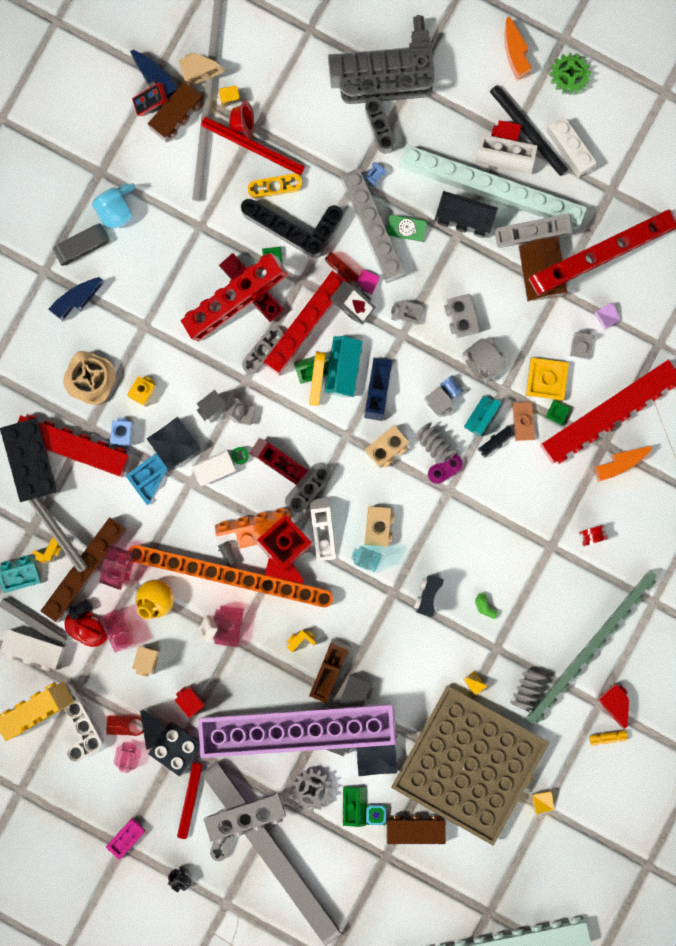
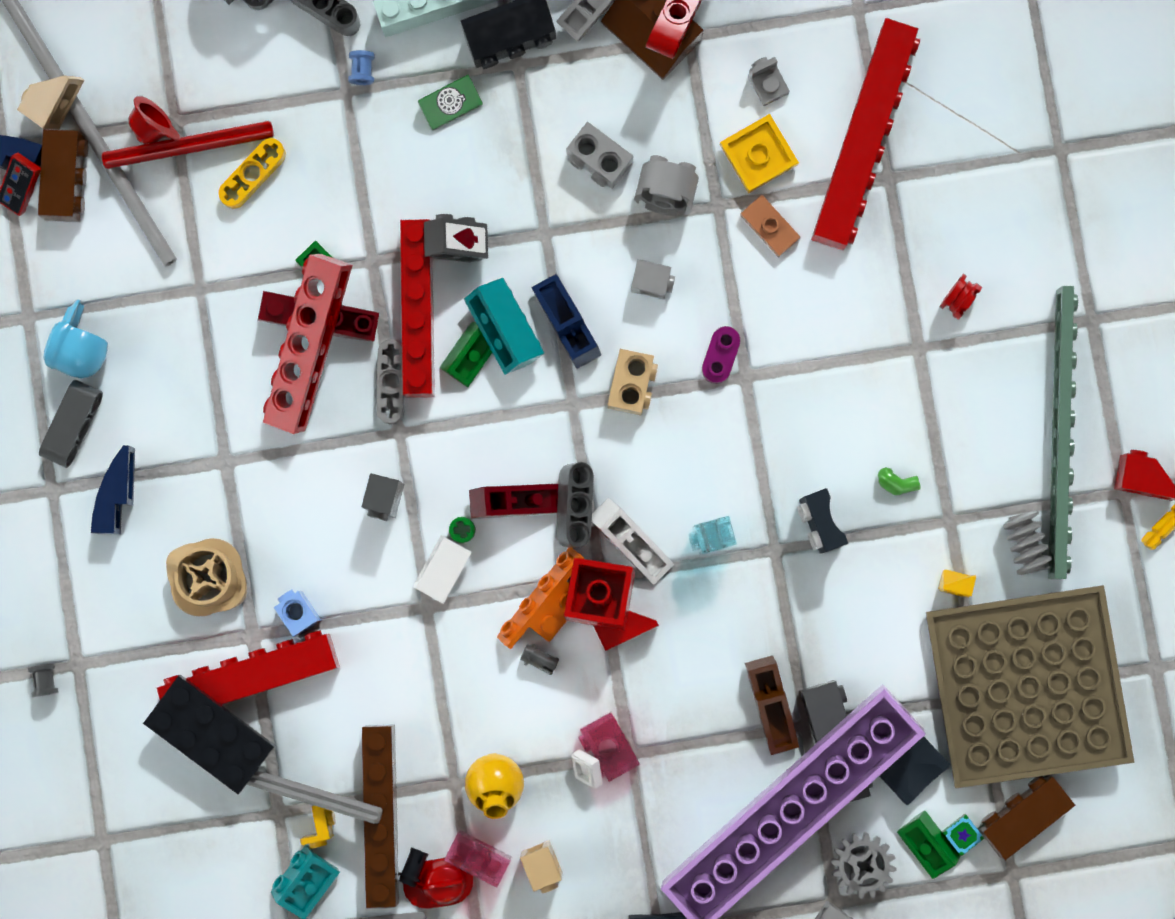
camera: 30 degrees left, 0 degrees up
(116, 567) = (418, 782): clear pink brick -> none
(142, 390) = (282, 542): yellow brick -> none
(147, 477) = (370, 642): dark azure wing -> none
(173, 443) = (370, 577): black brick -> none
(189, 701) = (633, 874): red brick -> none
(221, 572) = (553, 695): orange beam -> none
(228, 94) = (109, 105): yellow slope -> none
(239, 412) = (422, 478): light grey bracket -> none
(292, 229) = (315, 207): black beam -> none
(295, 639) = (703, 700): yellow bracket -> none
(317, 378) = (483, 364): yellow beam -> none
(341, 268) = (408, 209): clear red piece -> none
(367, 281) = (453, 201): dark pink tile -> none
(372, 225) = (406, 130): light grey brick -> none
(375, 515) = (697, 503): tan brick -> none
(406, 312) = (529, 202): light grey bracket -> none
(433, 443) = (685, 334): light grey piece -> none
(451, 387) = (652, 250): medium blue bush -> none
(482, 415) = (716, 256): teal bracket -> none
(496, 441) = (756, 274): black pin -> none
(542, 801) = (1148, 662): yellow slope -> none
(557, 412) = (802, 184): green tile -> none
(607, 316) = (772, 23): lavender slope -> none
(620, 463) = (925, 186): orange slope -> none

